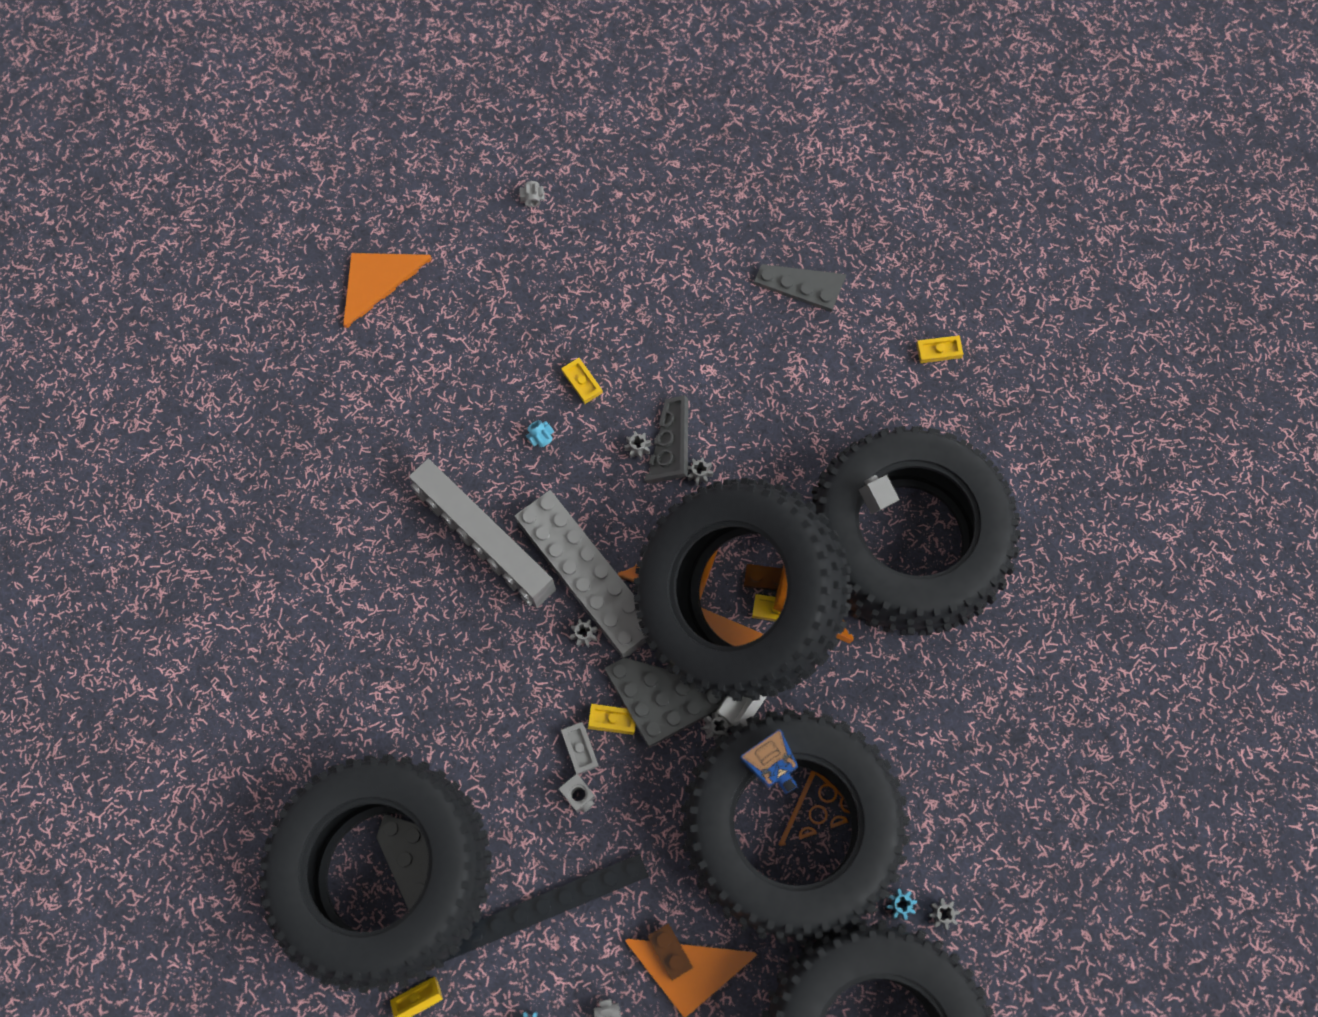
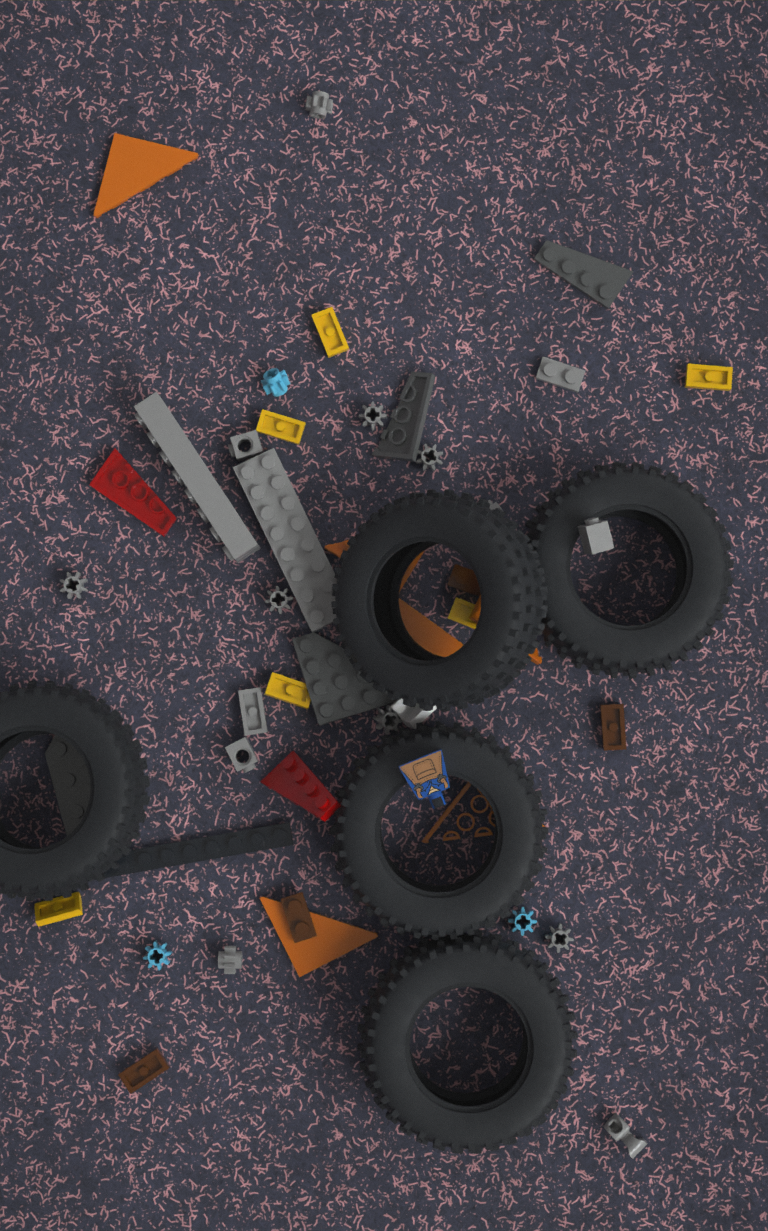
camera: 10 degrees right, 15 degrees up
(373, 663) = (67, 583): none -> light grey gear
(416, 560) = (128, 490): none -> red wing
(525, 487) = (255, 450): none -> light grey brick
(552, 473) = (280, 427): none -> yellow plate
(645, 810) = (302, 787): none -> red wing
(803, 375) = (560, 374): none -> light grey plate
(939, 687) = (613, 727): none -> reddish brown plate

